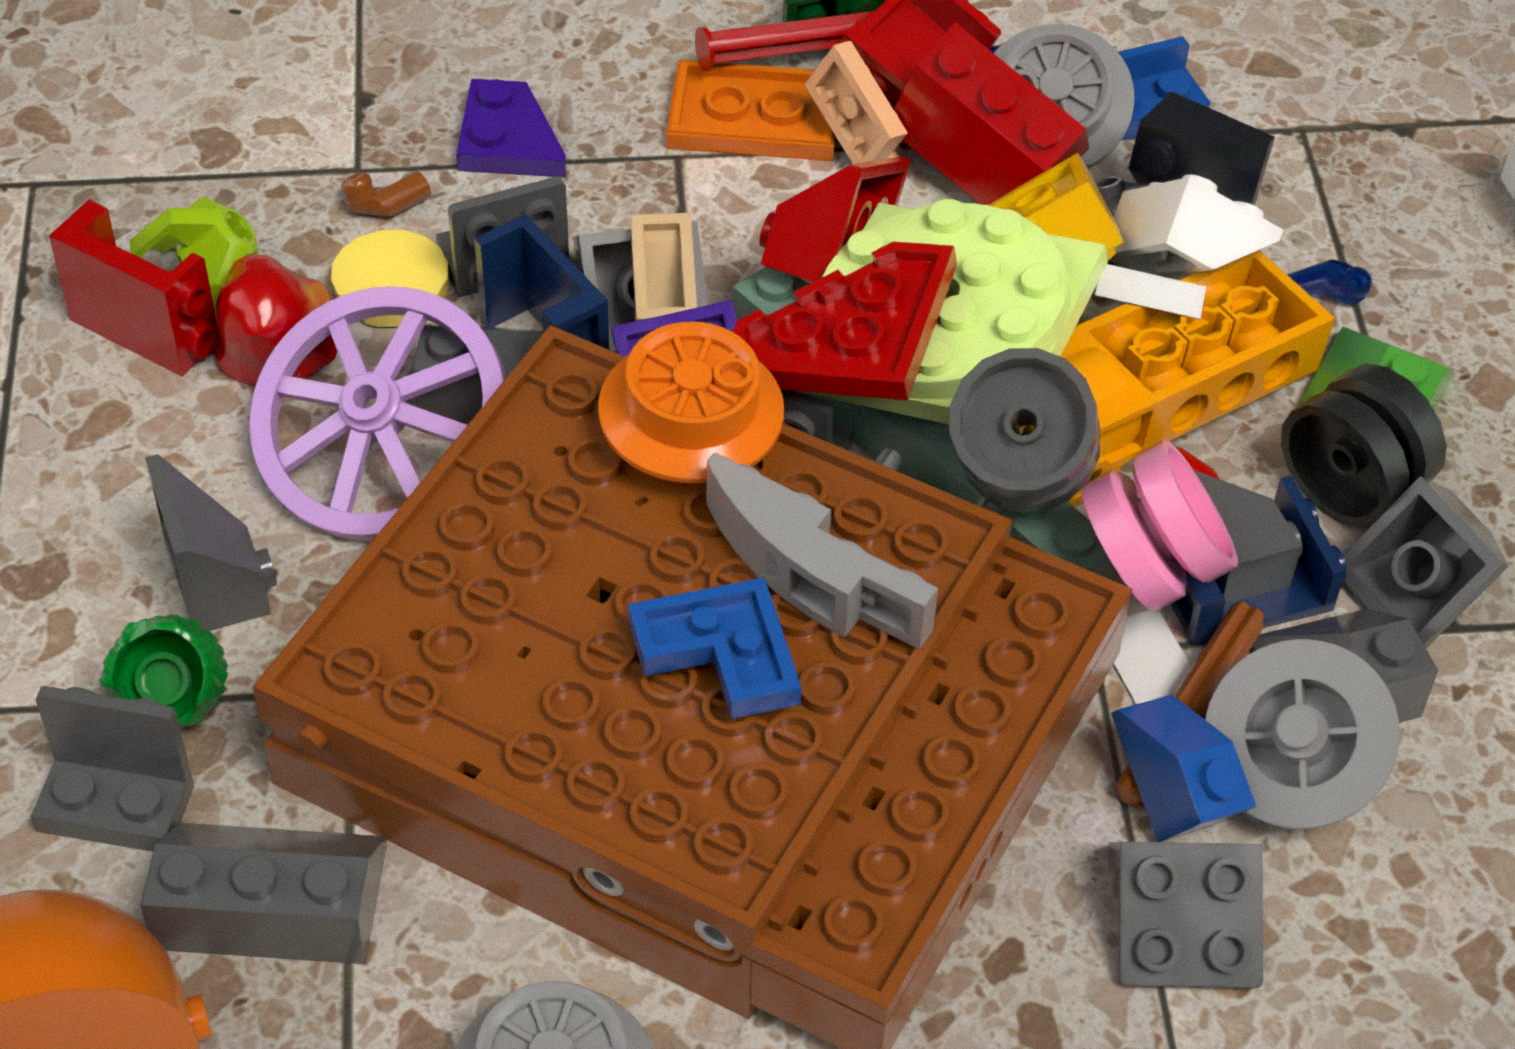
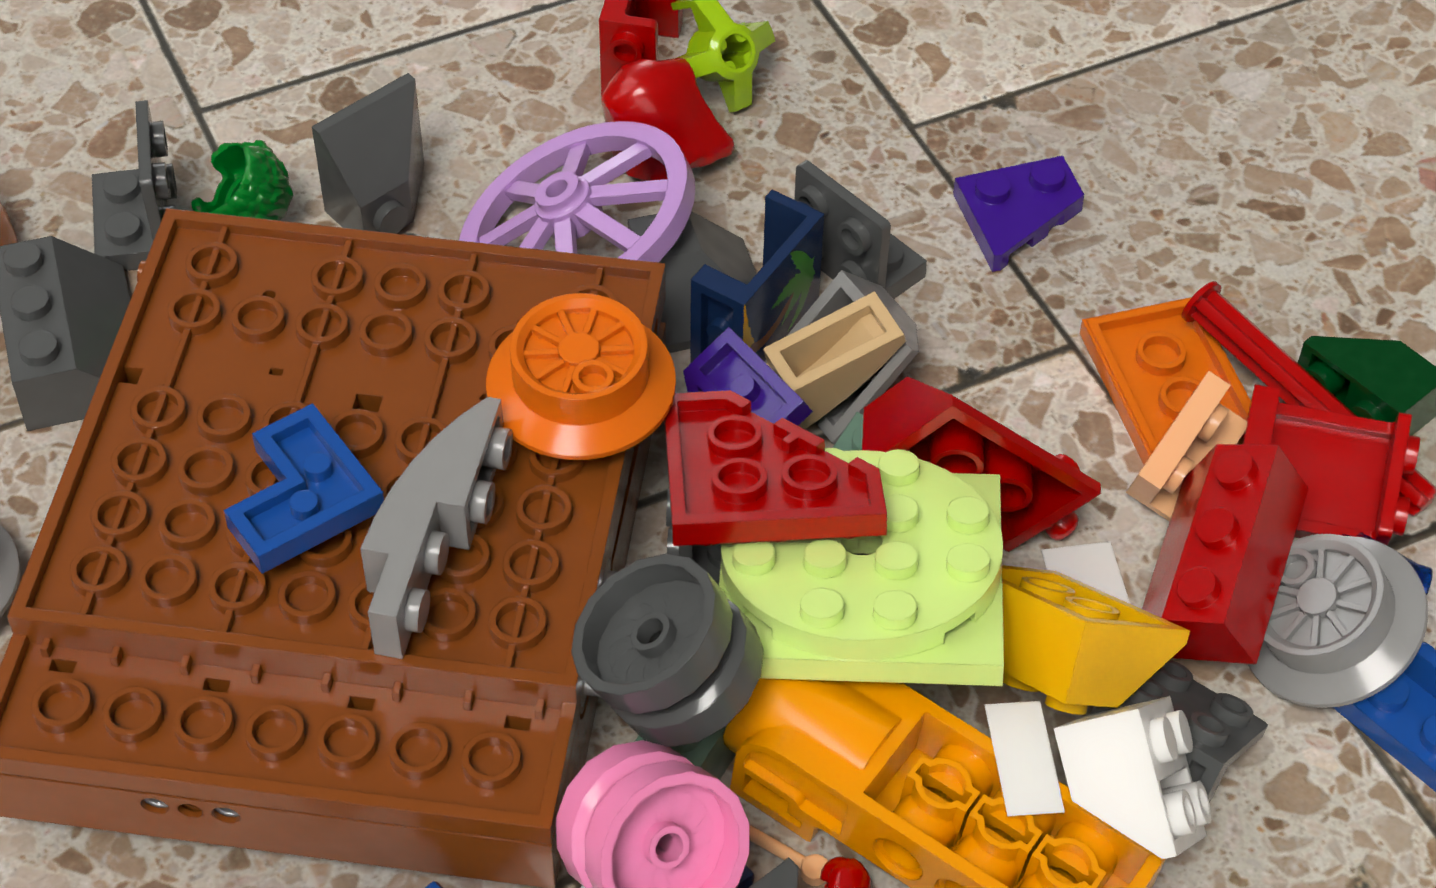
camera: 70 degrees right, 0 degrees up
(387, 200) = (872, 152): dark orange arm -> none
(390, 259) = (758, 172): light yellow tile -> none
(1196, 140) = (1281, 761): black slope -> none

